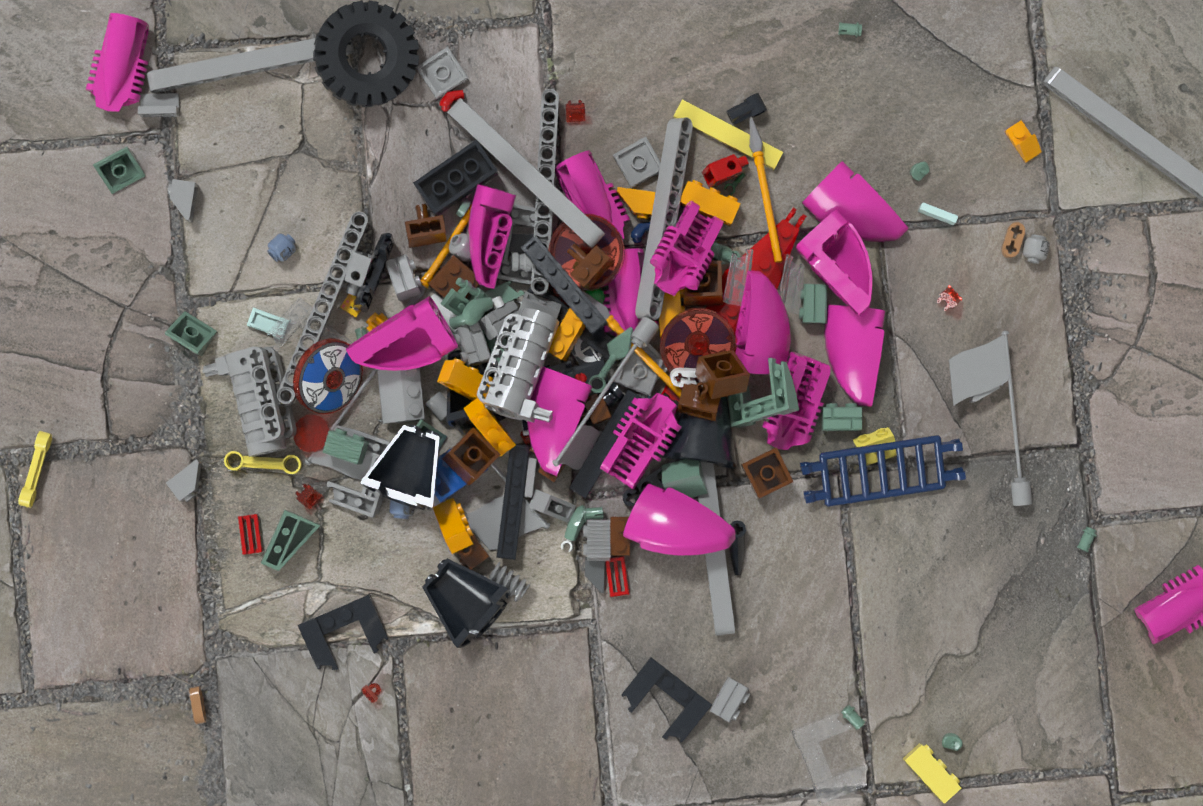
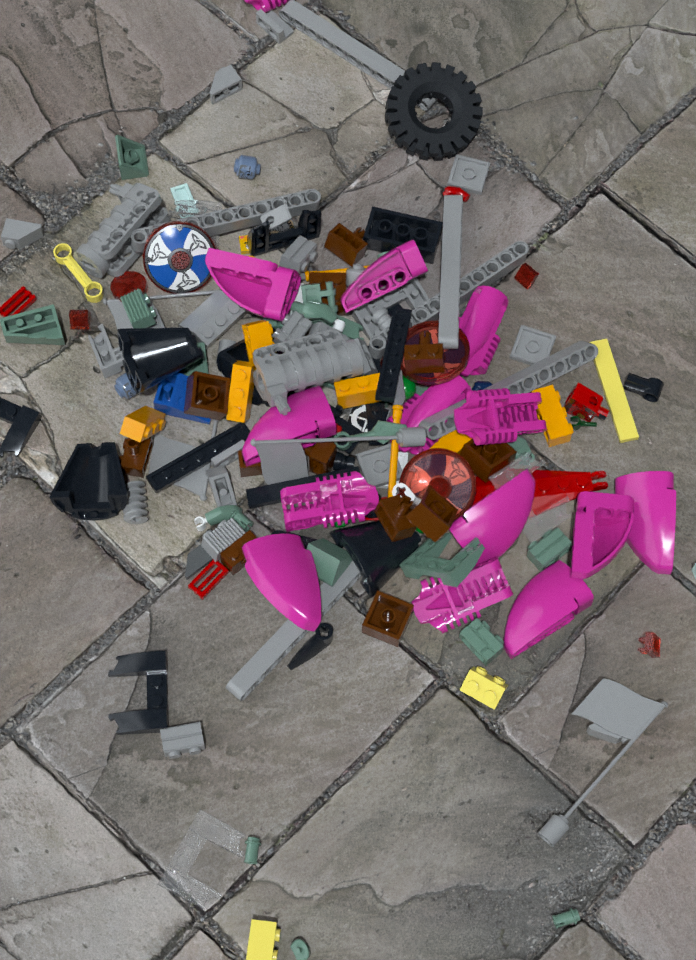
camera: 50 degrees right, 20 degrees down
(119, 169) = (207, 31): sand green slope -> none
(637, 201) = (504, 364): light orange slope -> none
(756, 147) = (618, 419): light orange piece -> none
(822, 465) = (485, 686): dark blue bar -> none

